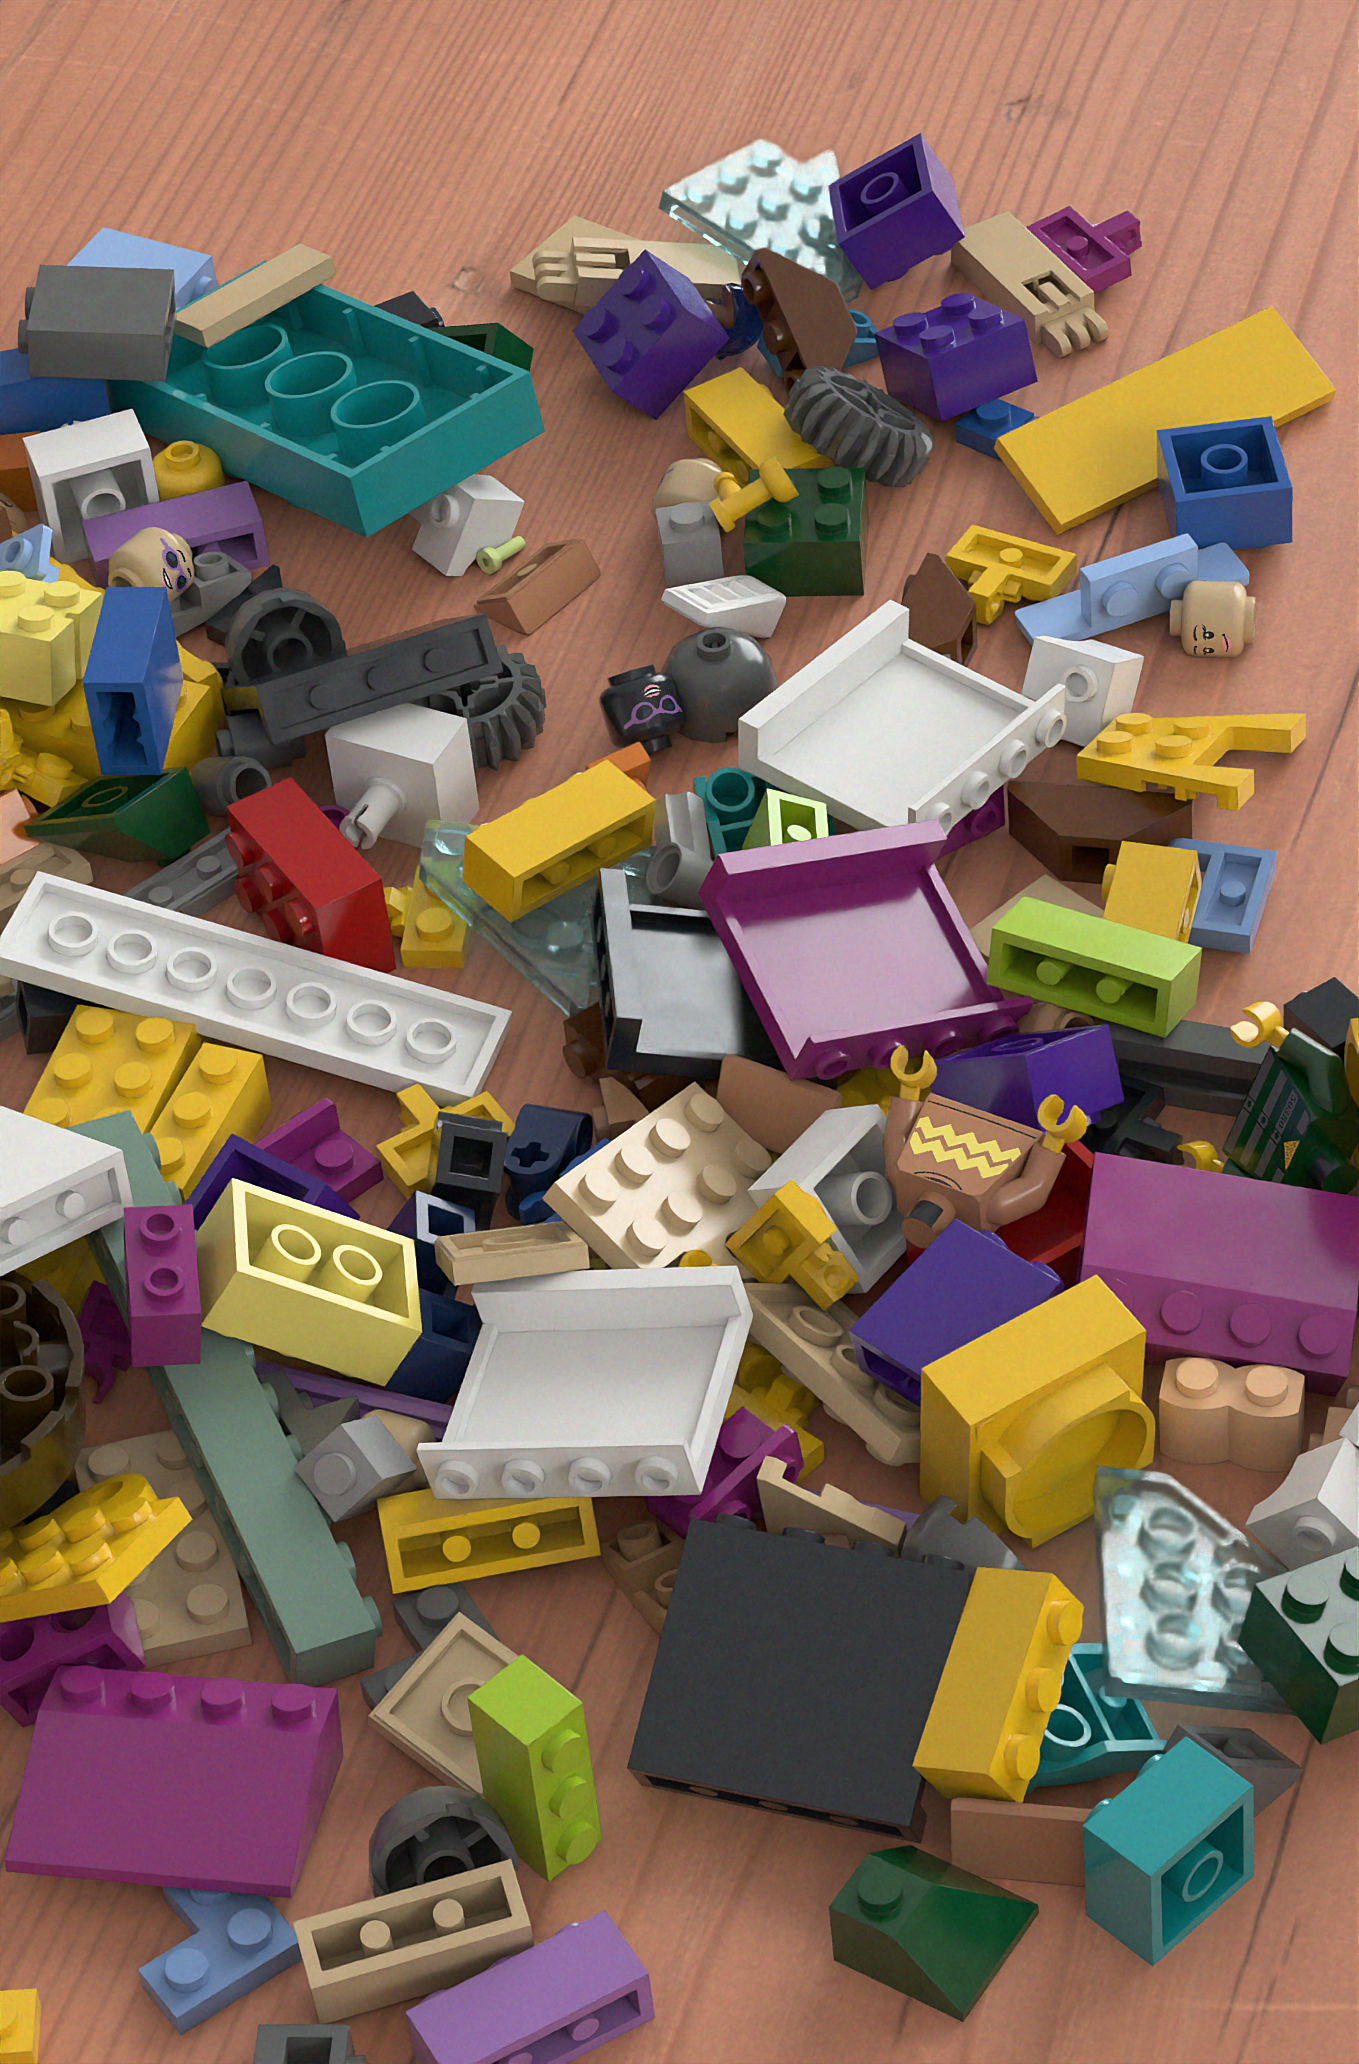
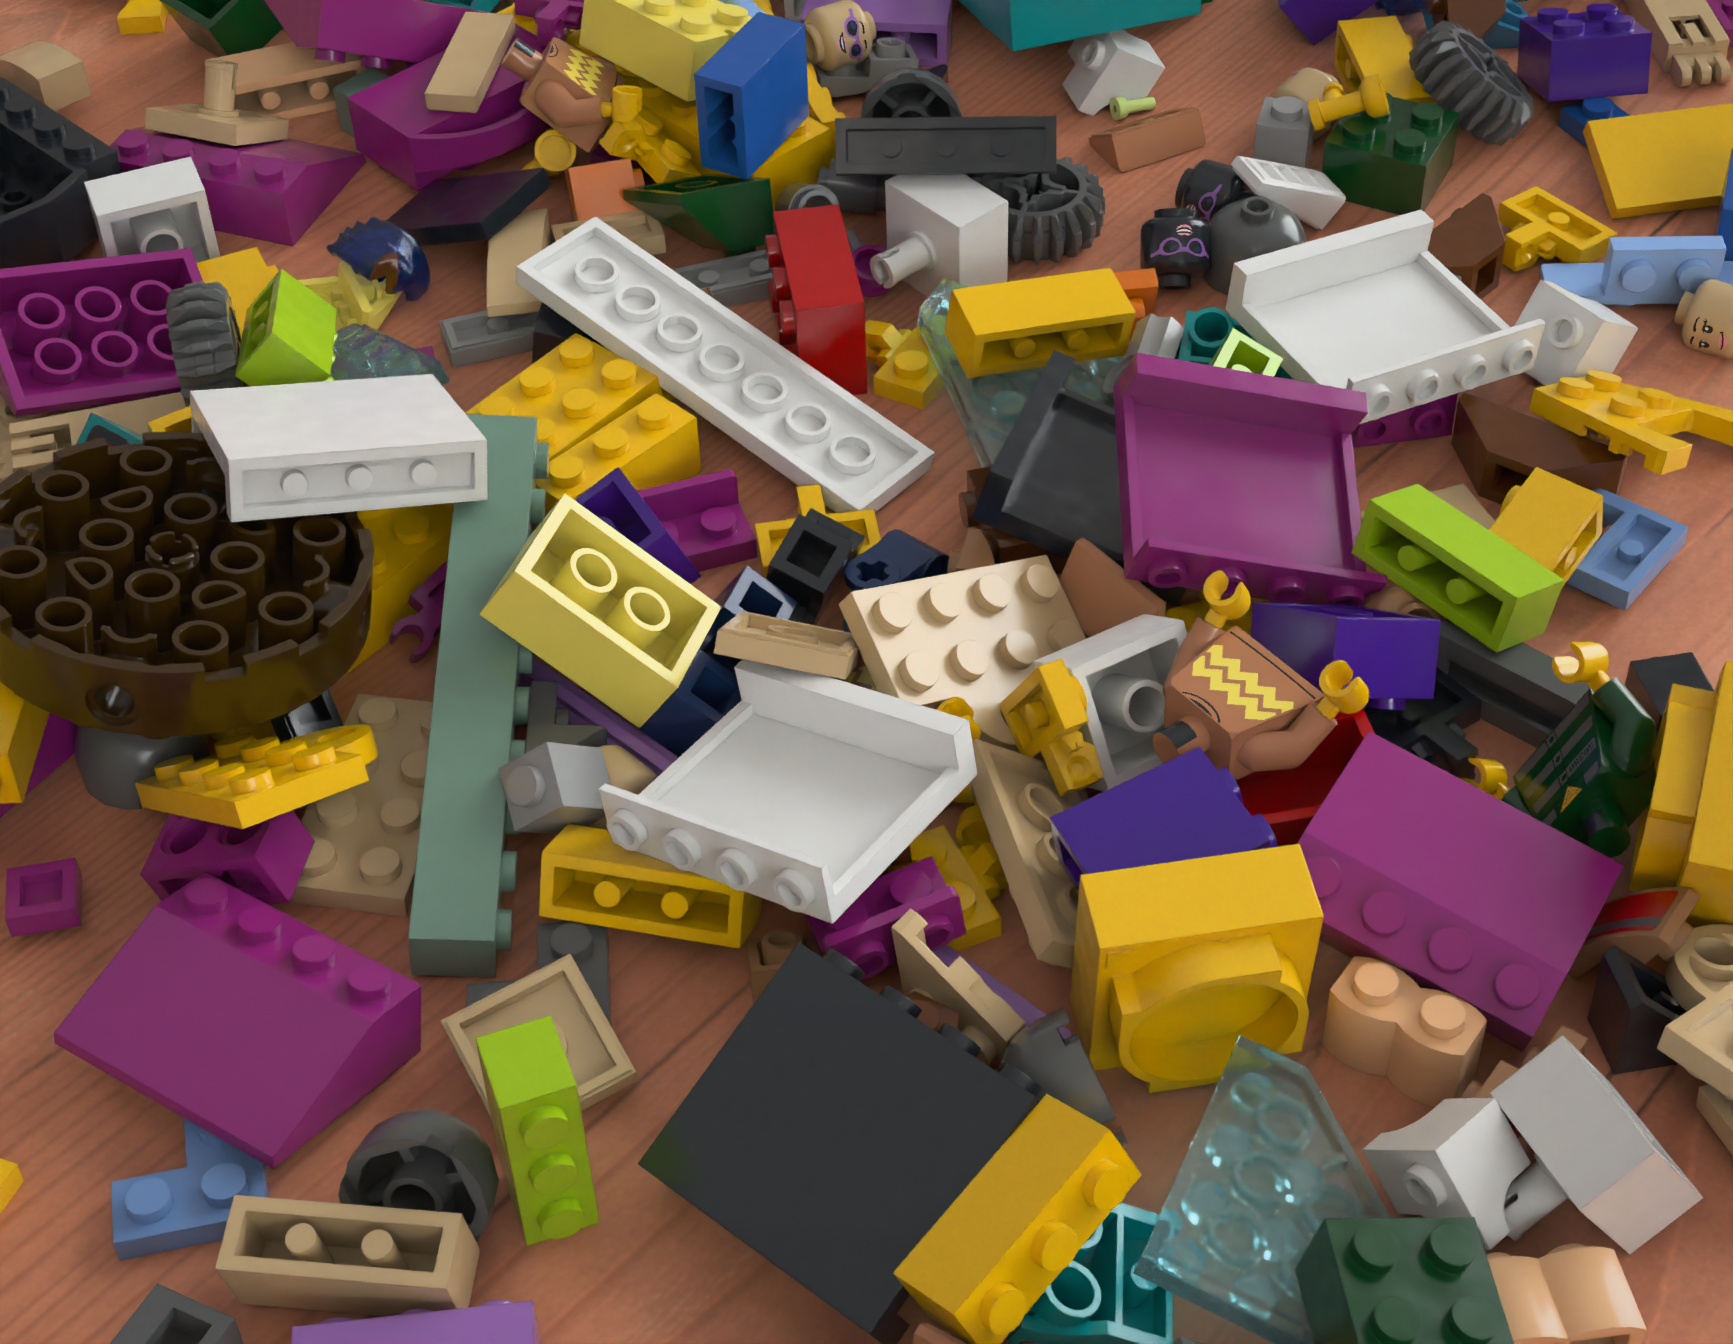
camera: 20 degrees right, 0 degrees up
(162, 1285) = (462, 567): magenta brick -> none
(645, 633) = (1210, 188): none -> black head

